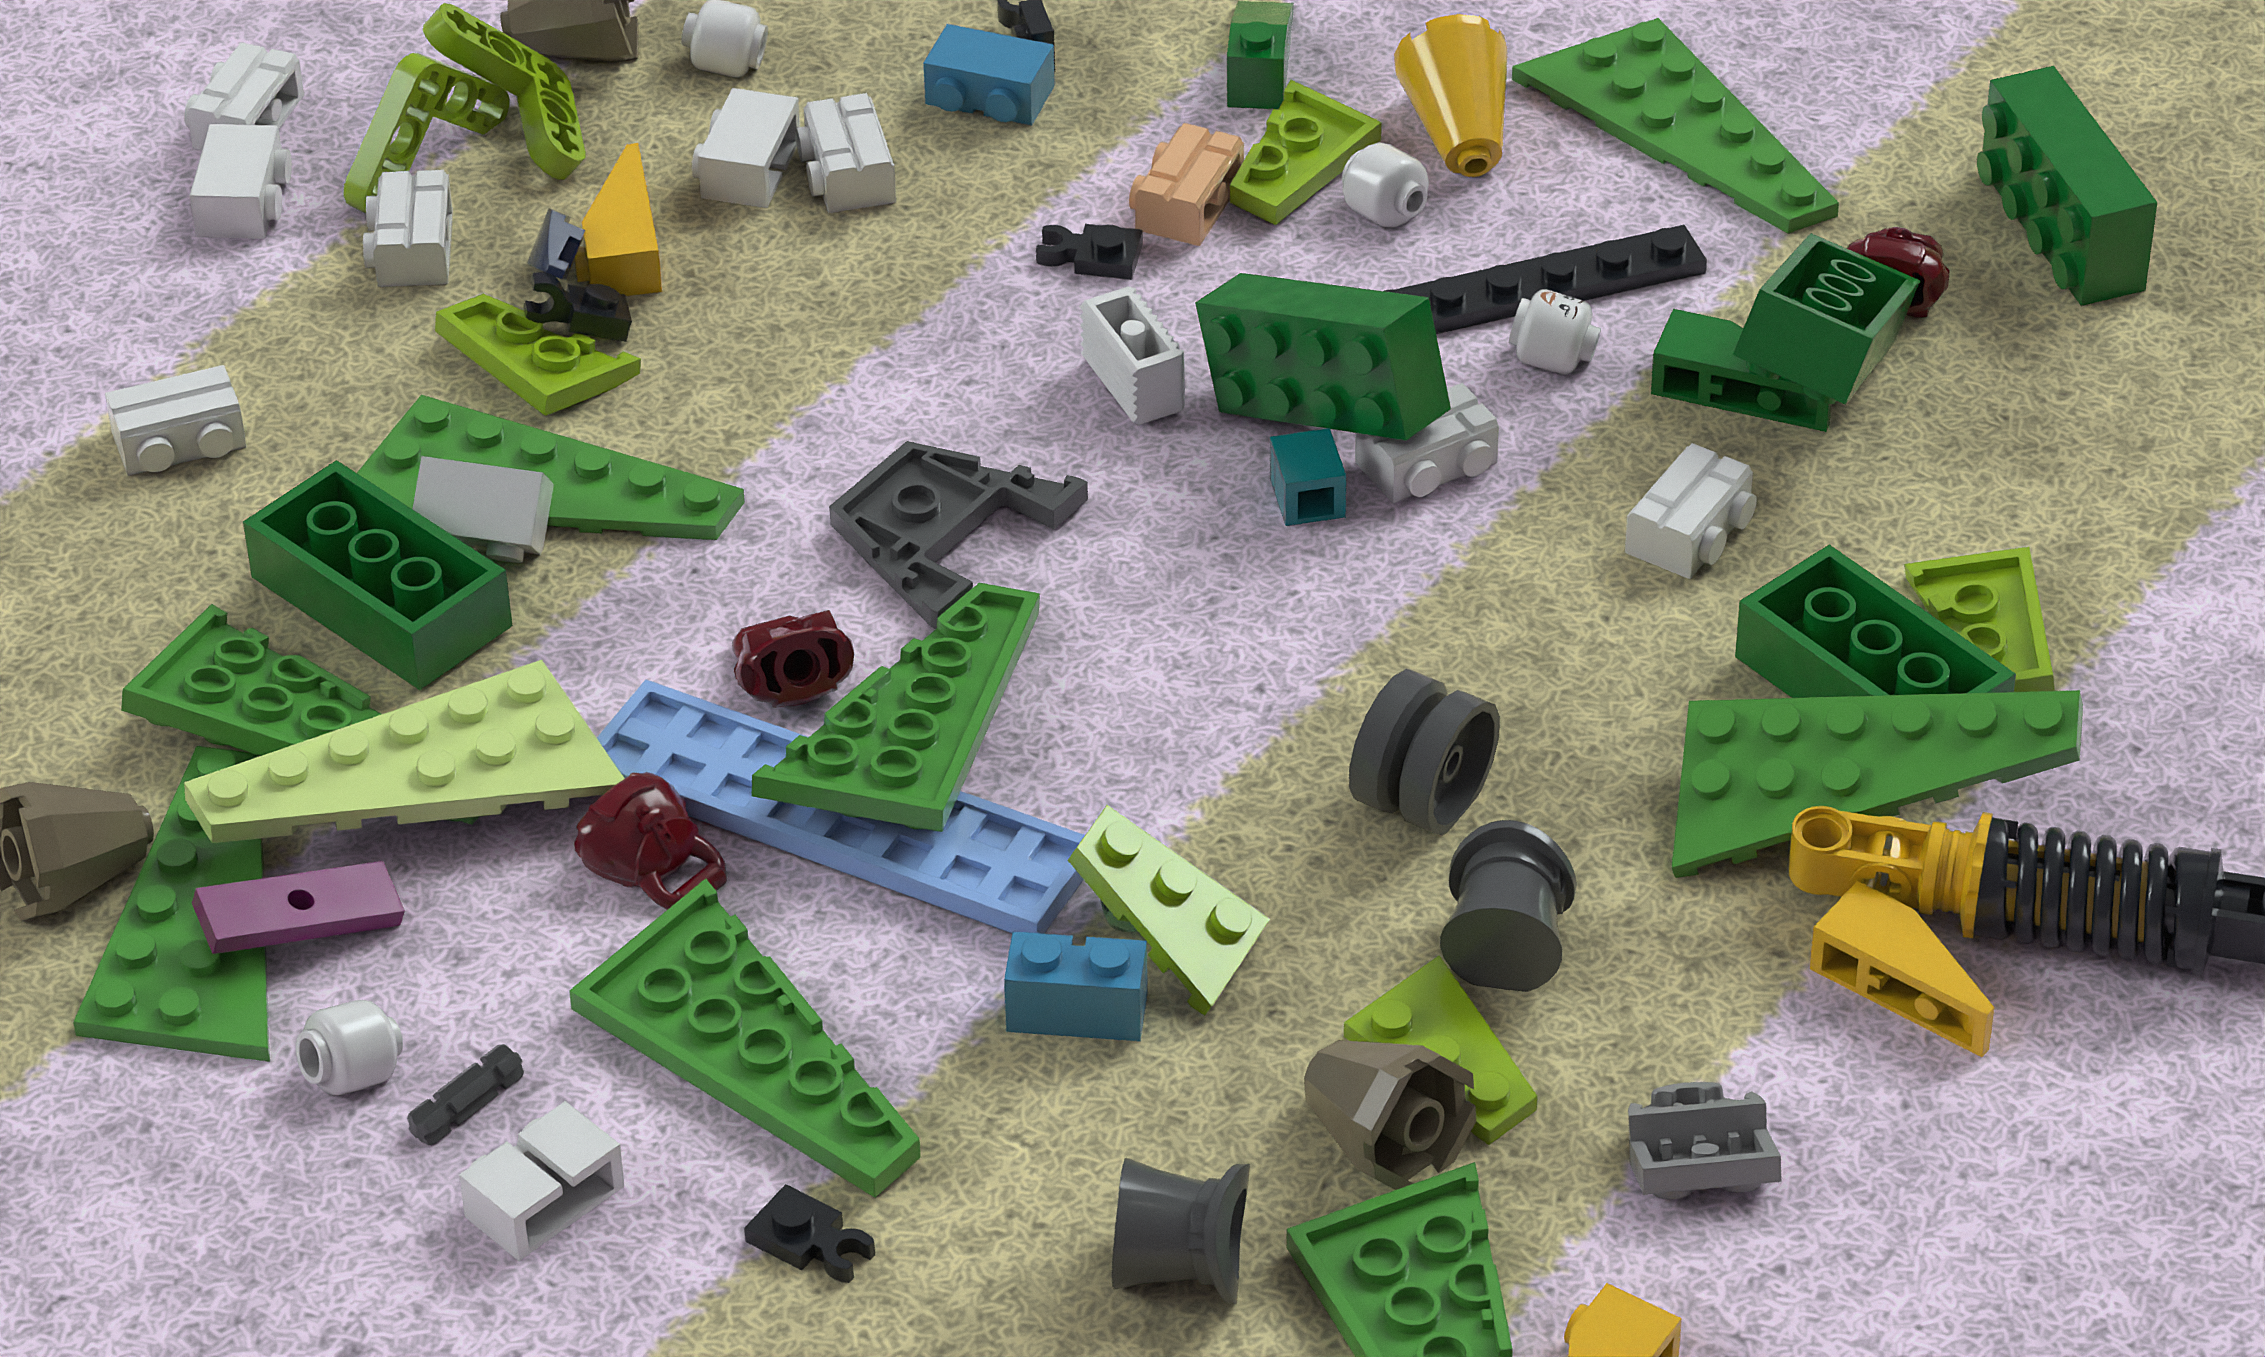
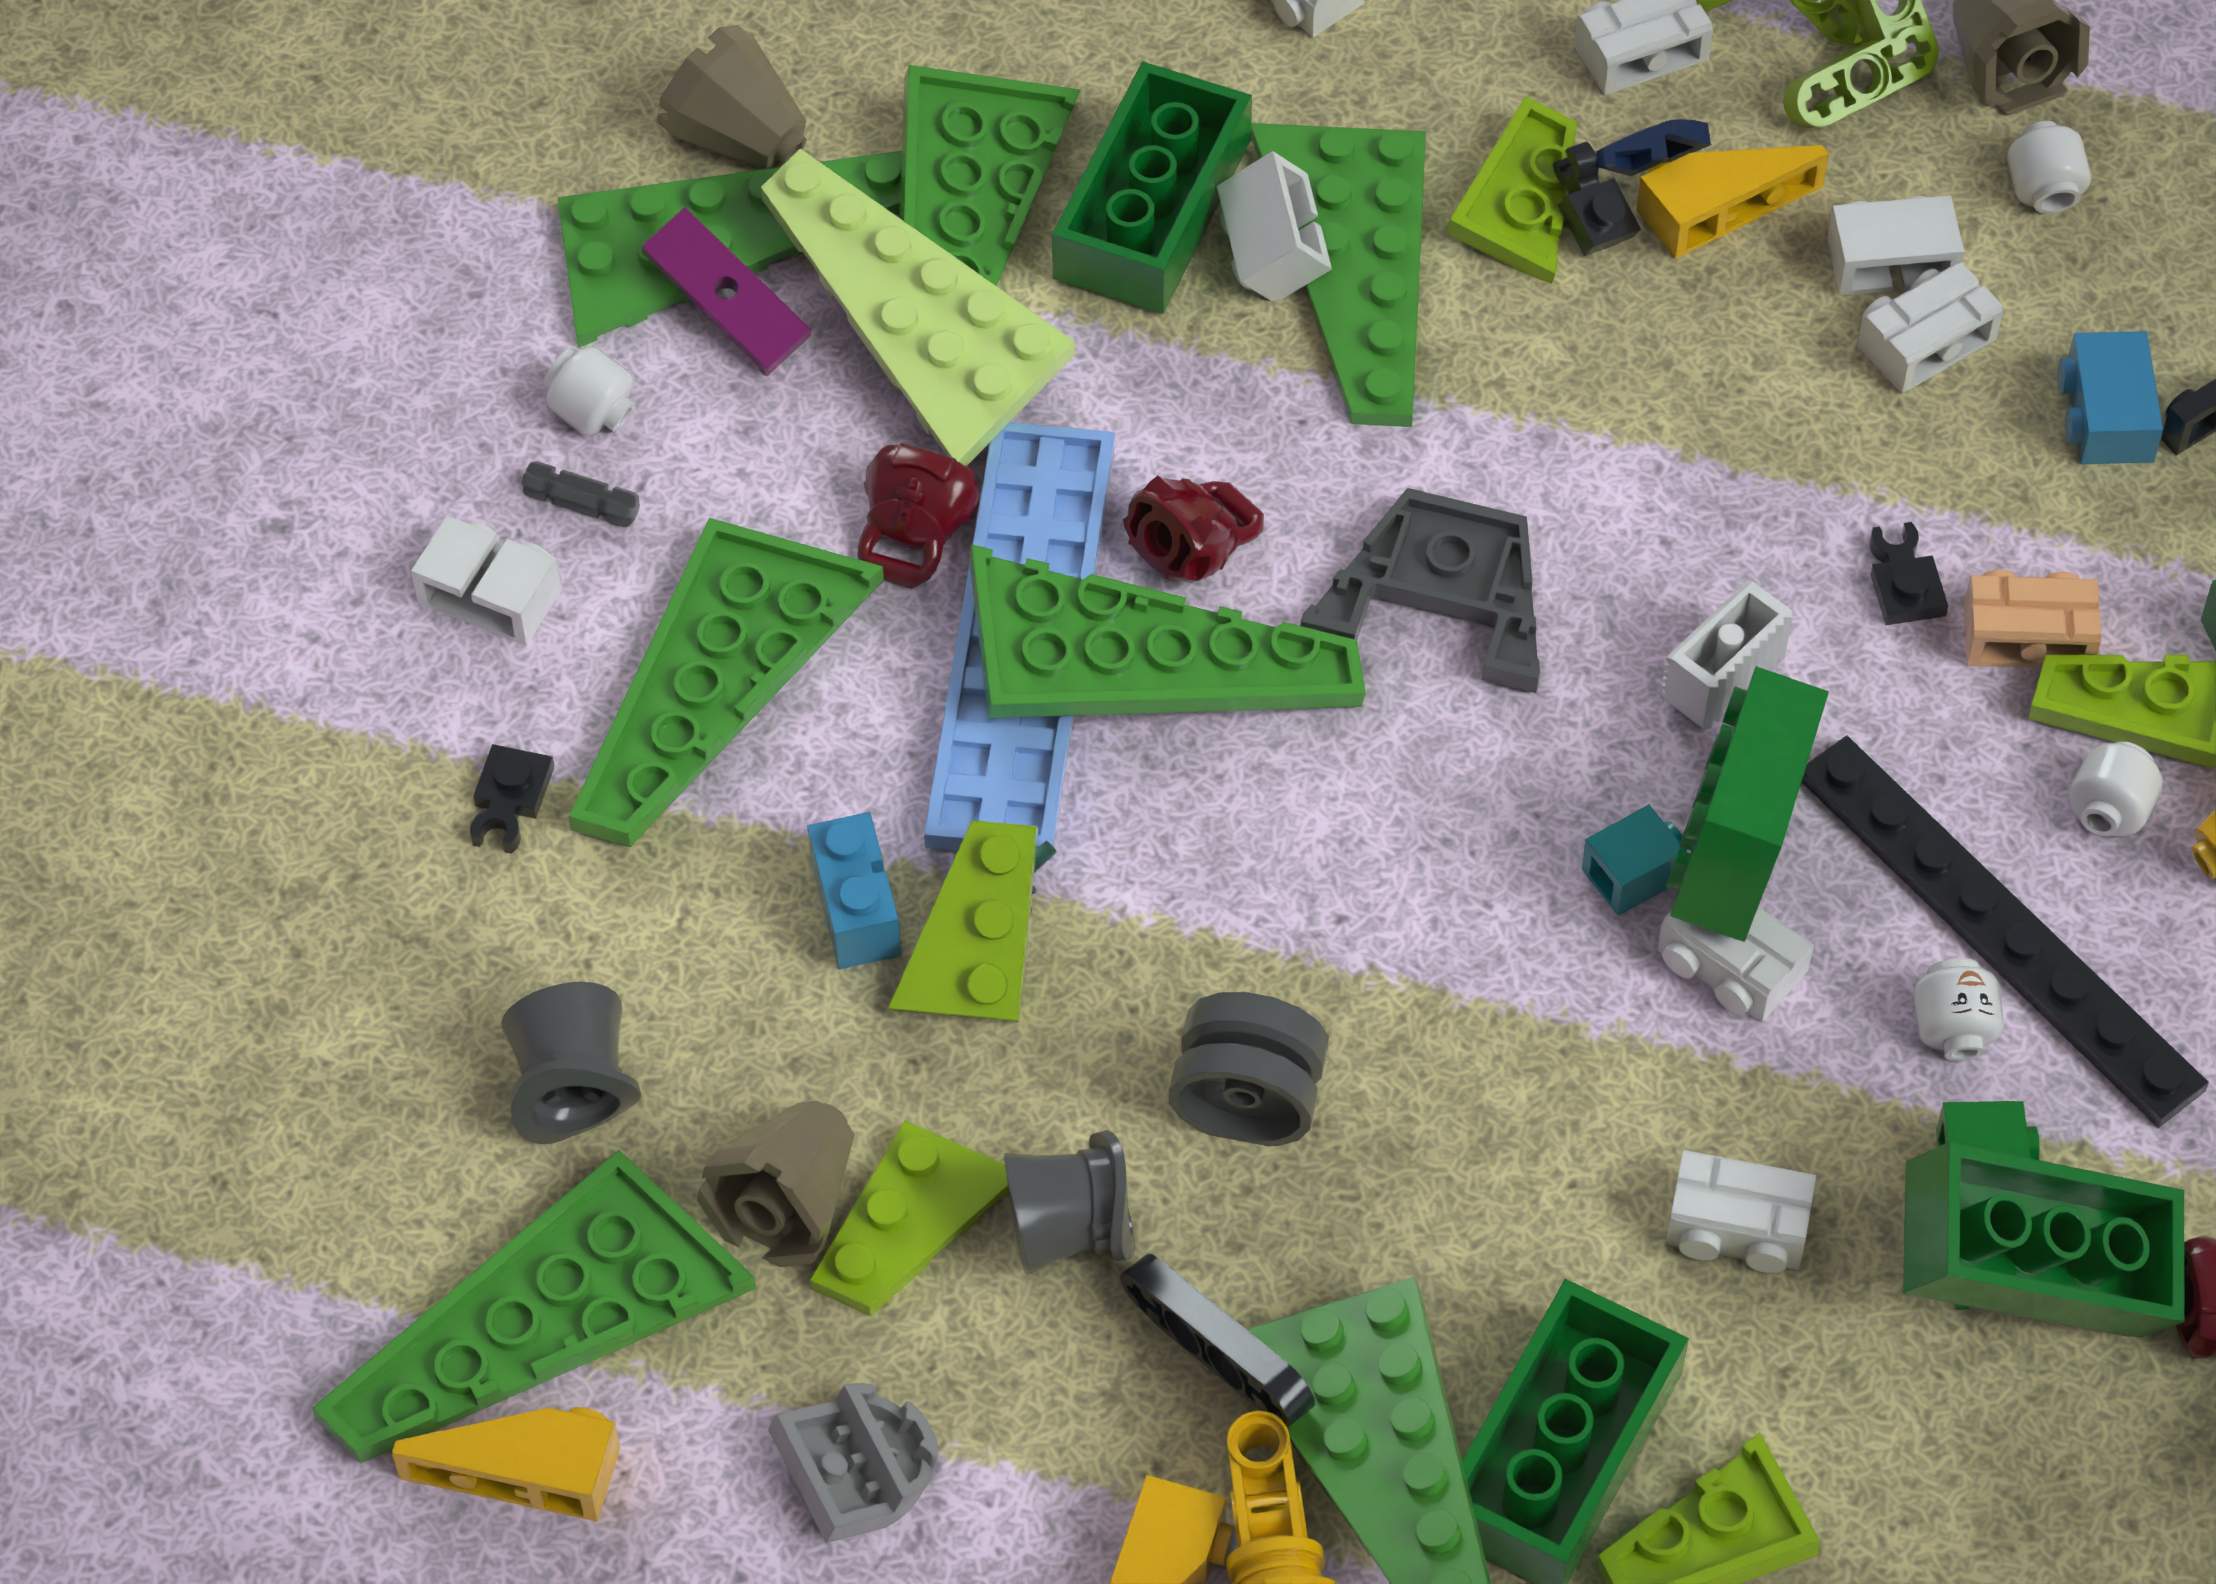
camera: 70 degrees right, 15 degrees up
(1605, 890) = (1217, 1340): none -> black beam

